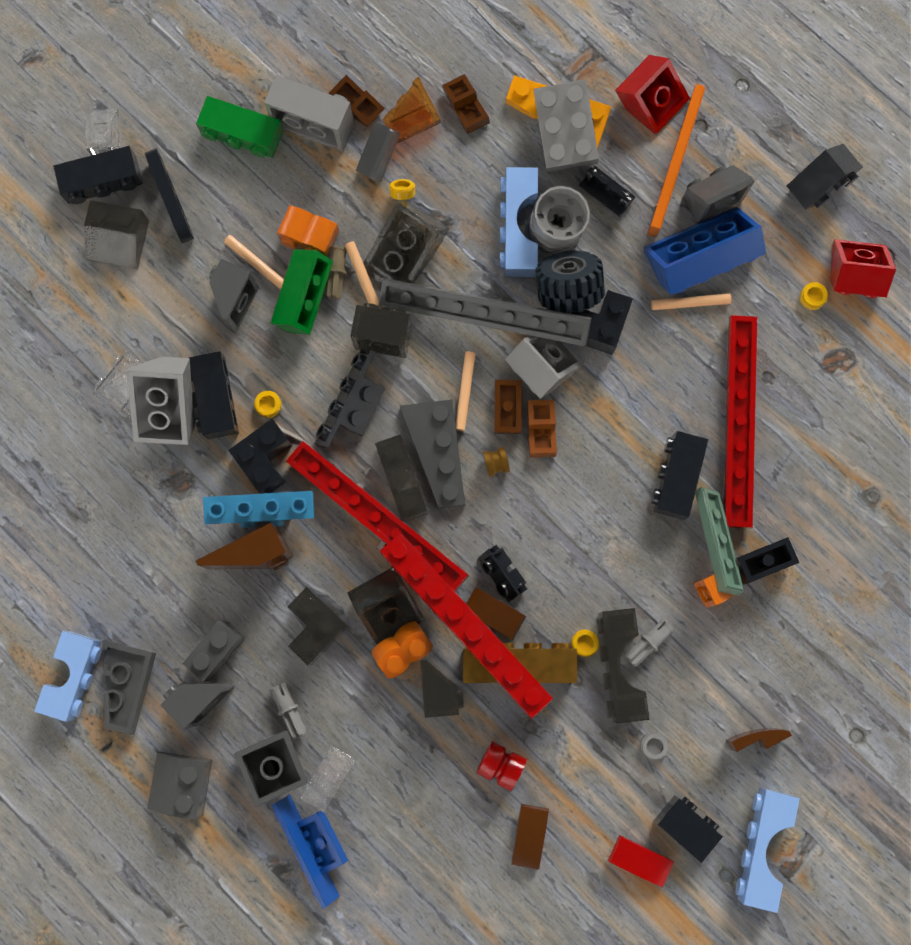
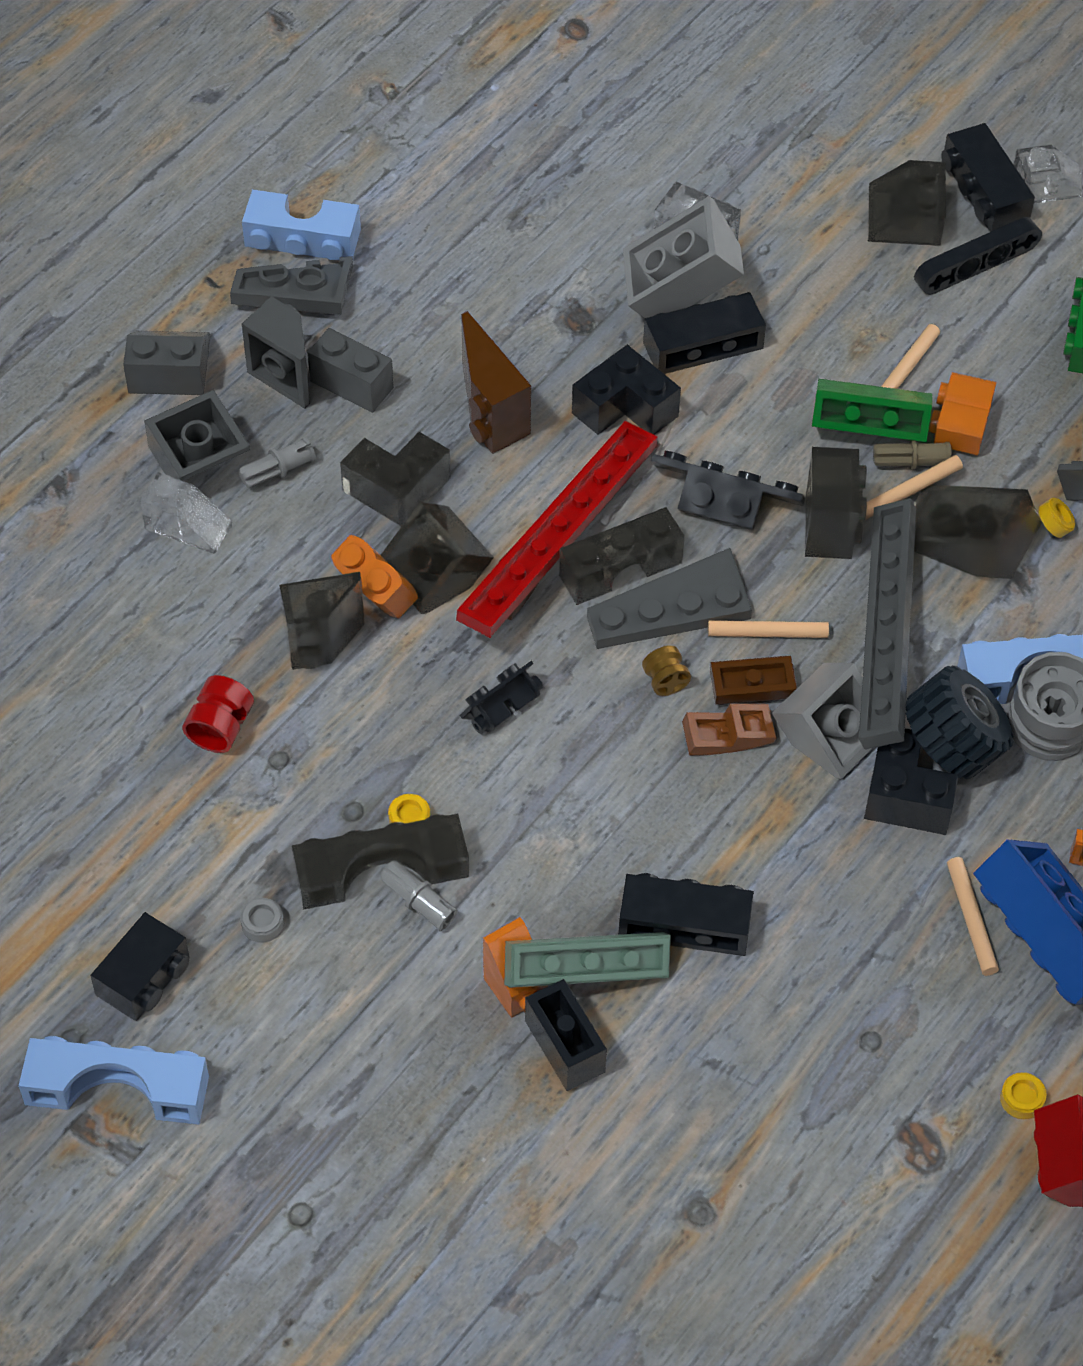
camera: 80 degrees right, 25 degrees down
(233, 292) = (847, 328): dark grey slope -> none
(258, 507) = (551, 389): dark azure bracket -> none
(268, 404) = (704, 400): yellow tile -> none
(314, 847) = (89, 506): blue bracket -> none
(466, 626) = (412, 621): red plate -> none
(496, 613) = (438, 691): reddish brown slope -> none
(530, 836) = (125, 763): reddish brown slope -> none
(545, 665) = (369, 714): pearl gold brick -> none
(640, 861) = (88, 910): red slope -> none
(740, 421) = (789, 995): red plate -> none
(766, 738) = (285, 1059): reddish brown slope -> none

